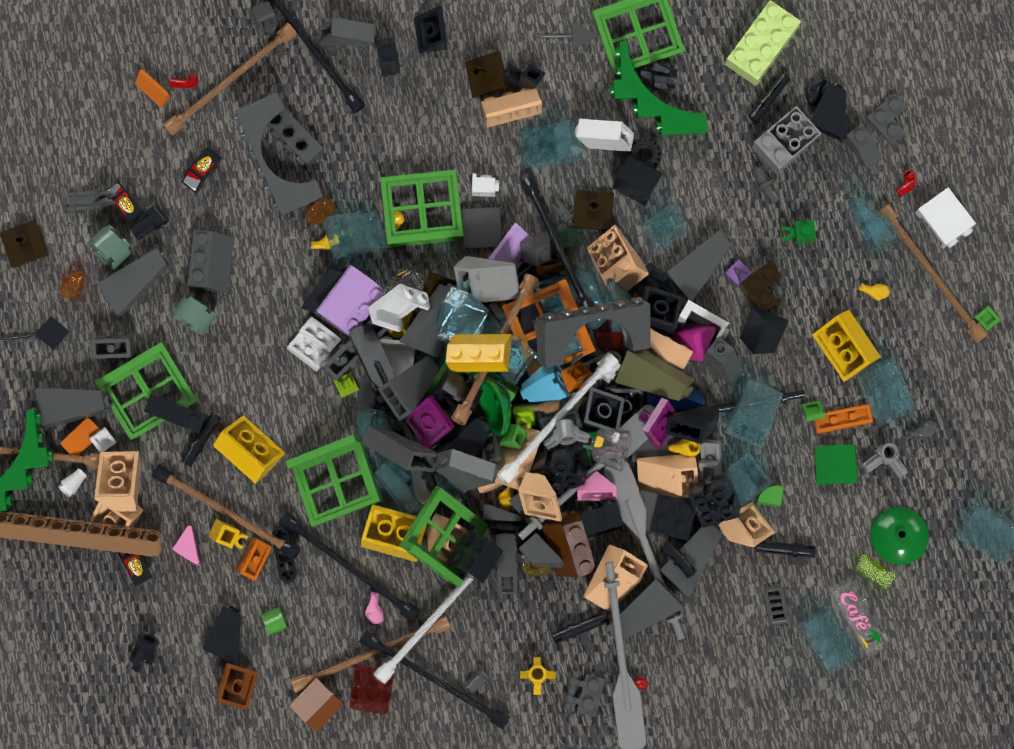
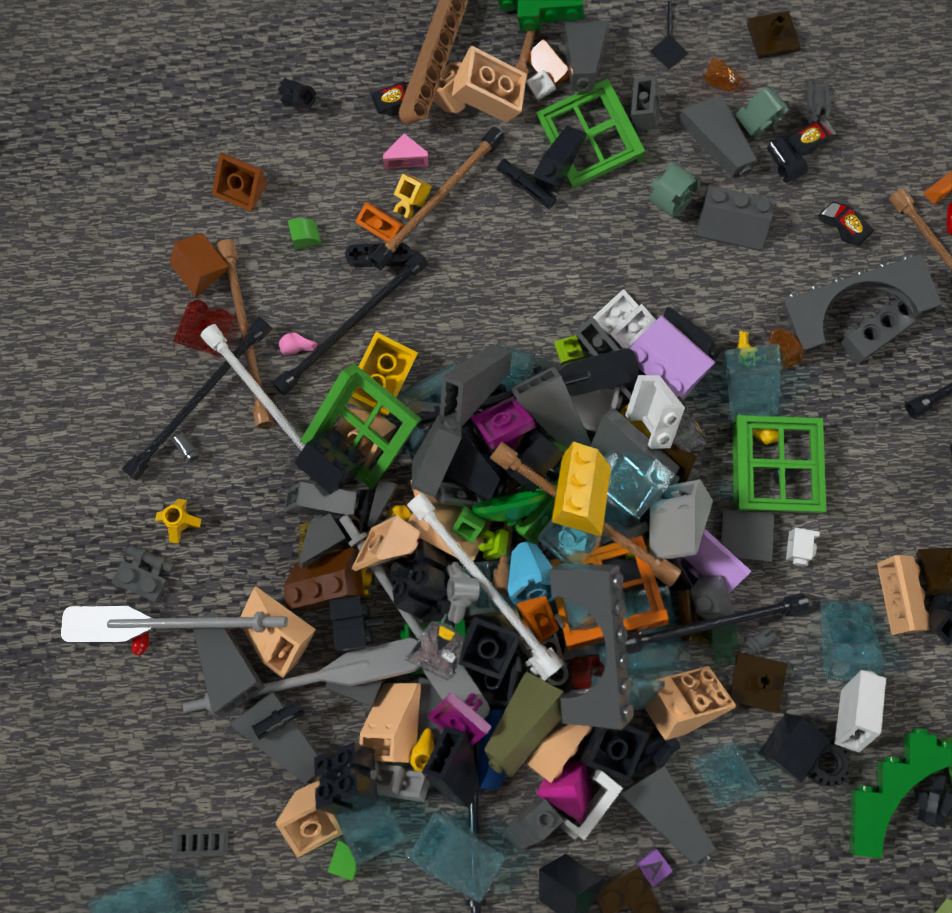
camera: 95 degrees right, 5 degrees down
(72, 482) = (496, 47): white cone -> none
(226, 636) = (295, 180): black slope -> none
(248, 449) = (508, 231): yellow slope -> none
(327, 454) = (487, 313): bright green window -> none
(585, 625) = (222, 570): black pin -> none
(597, 489) = (389, 623): bright pink slope -> none
(672, 518) = (336, 719): black brick -> none
(786, 549) = (268, 880): black pin -> none

